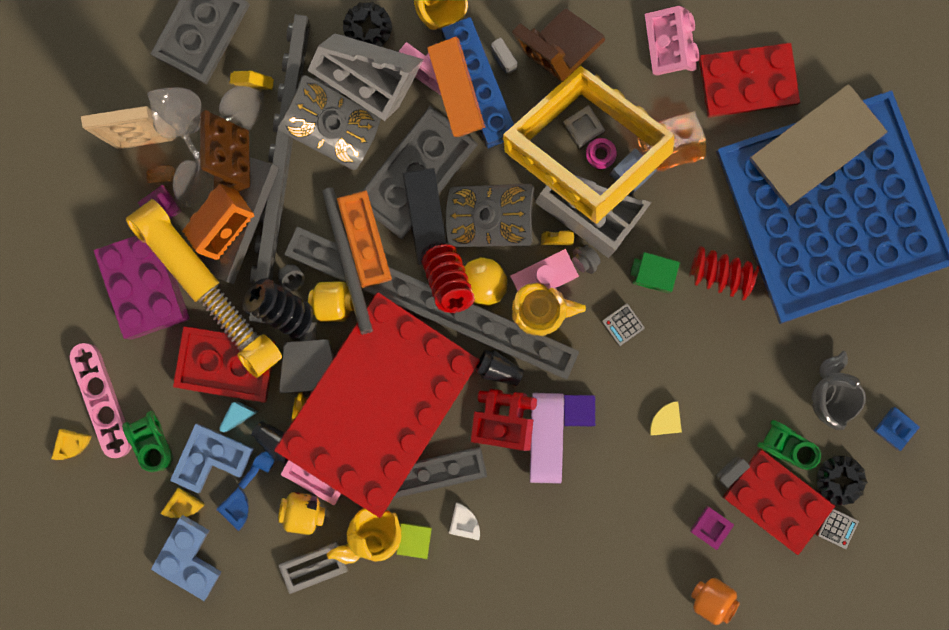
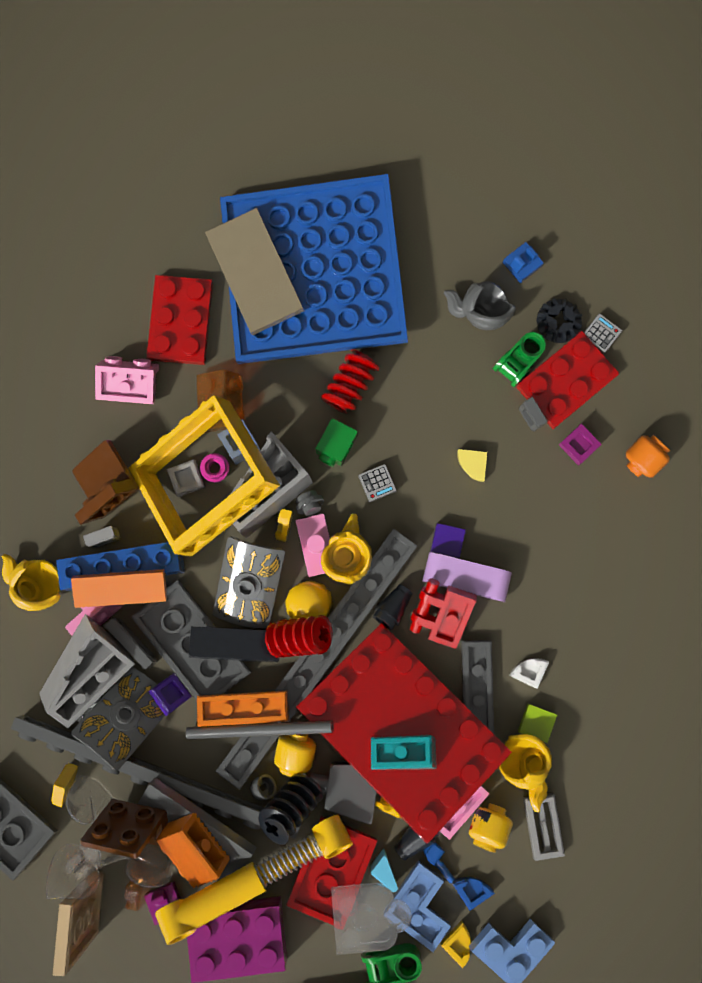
camera: 80 degrees left, 5 degrees down
(189, 408) = (367, 918): none -> clear plate
(356, 409) = (403, 752): none -> teal slope
(362, 163) = (169, 694): none -> dark purple tile
(378, 17) = (36, 647): black gear -> none
(404, 112) = (131, 643): none -> dark grey tile

